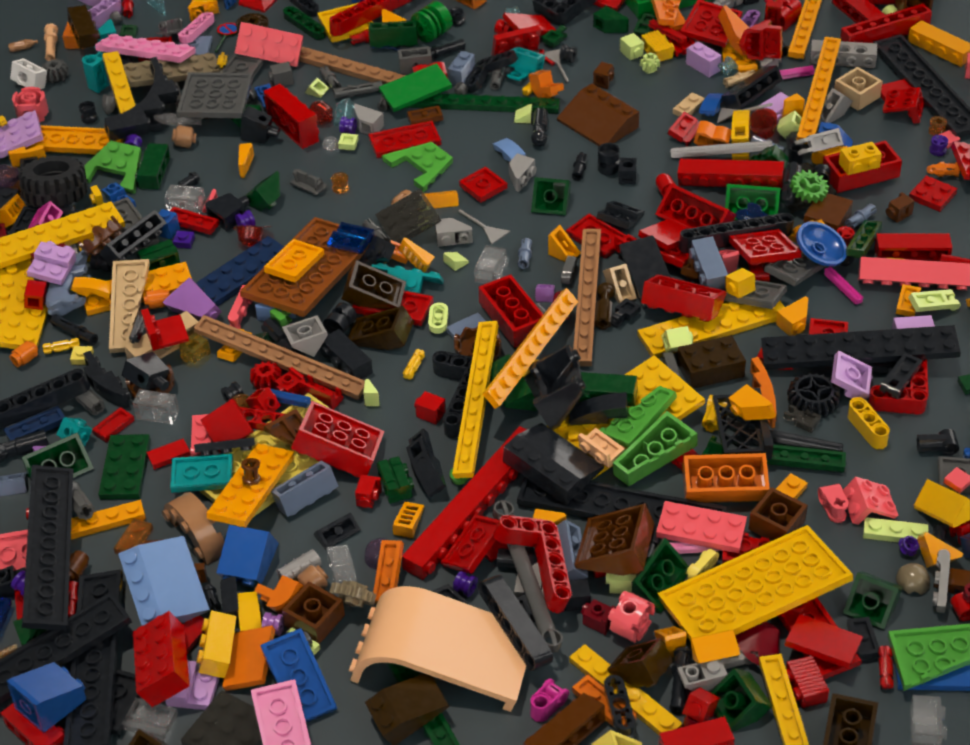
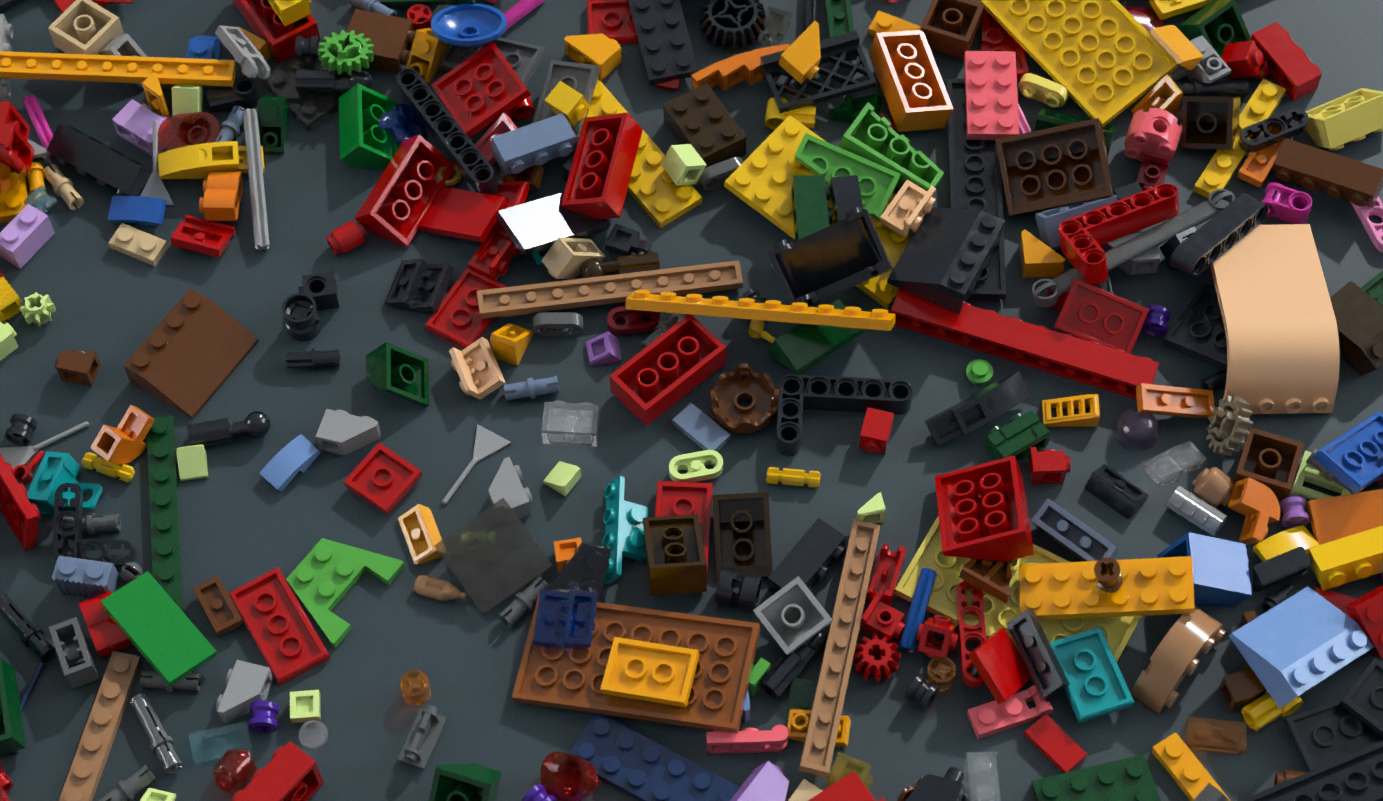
camera: 105 degrees left, 15 degrees up
(416, 255) = (582, 519): light orange slope -> none
(475, 402) = (863, 363): yellow plate -> none
(542, 226) = (477, 369): none -> light nougat bracket
(723, 172) = (314, 158): red brick -> none

